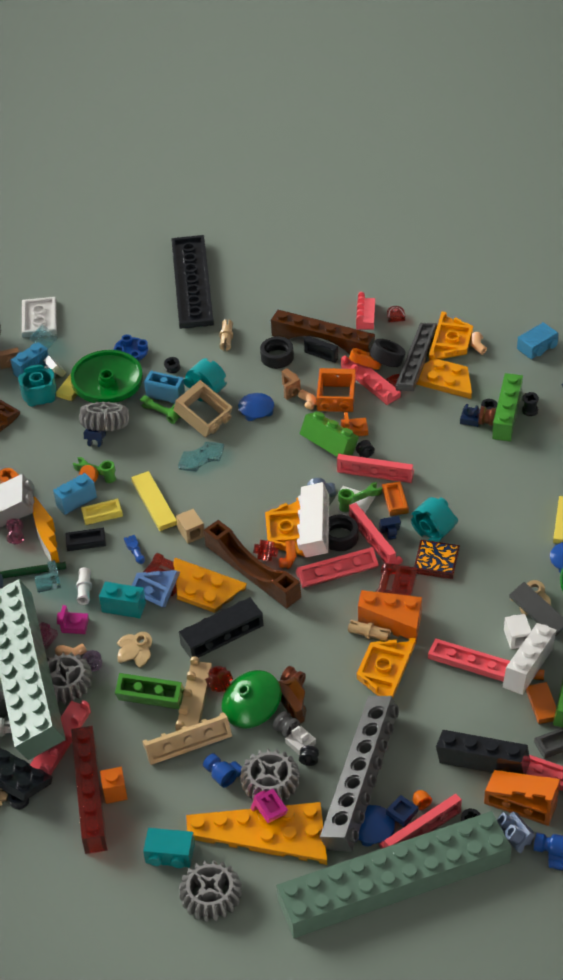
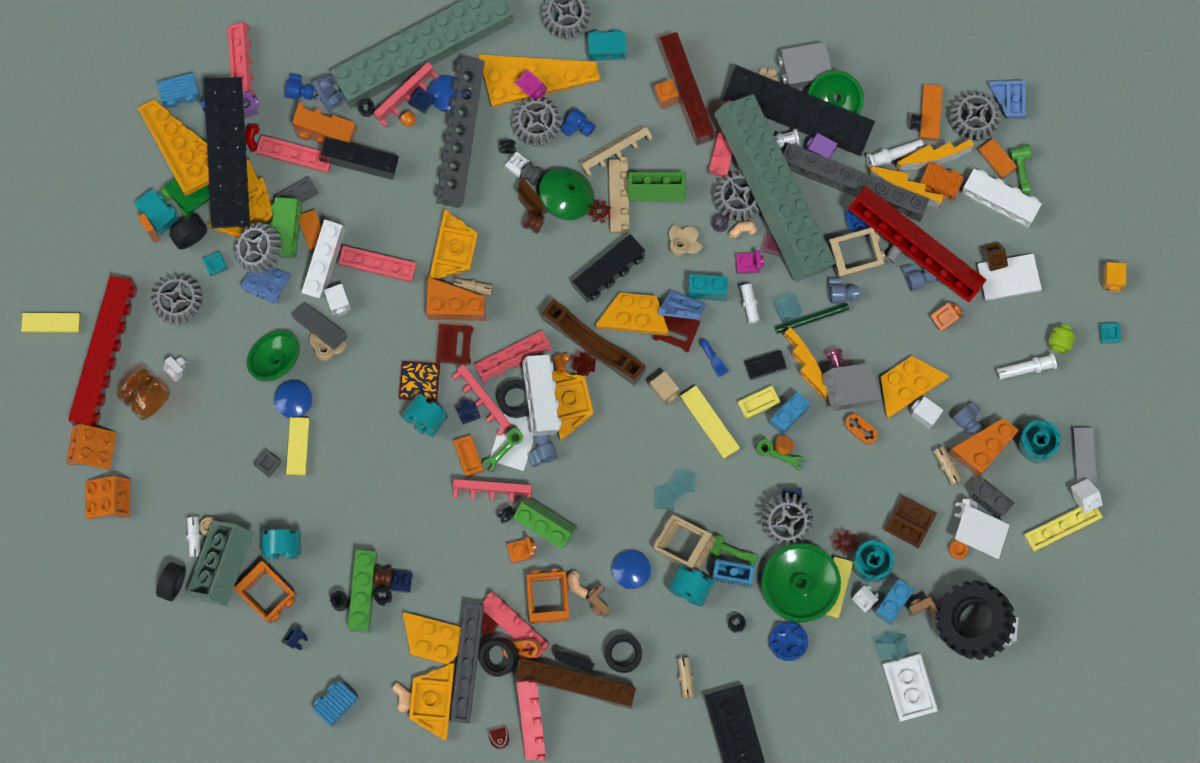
camera: 170 degrees right, 30 degrees up
(58, 403) = (845, 536): none -> clear red gear

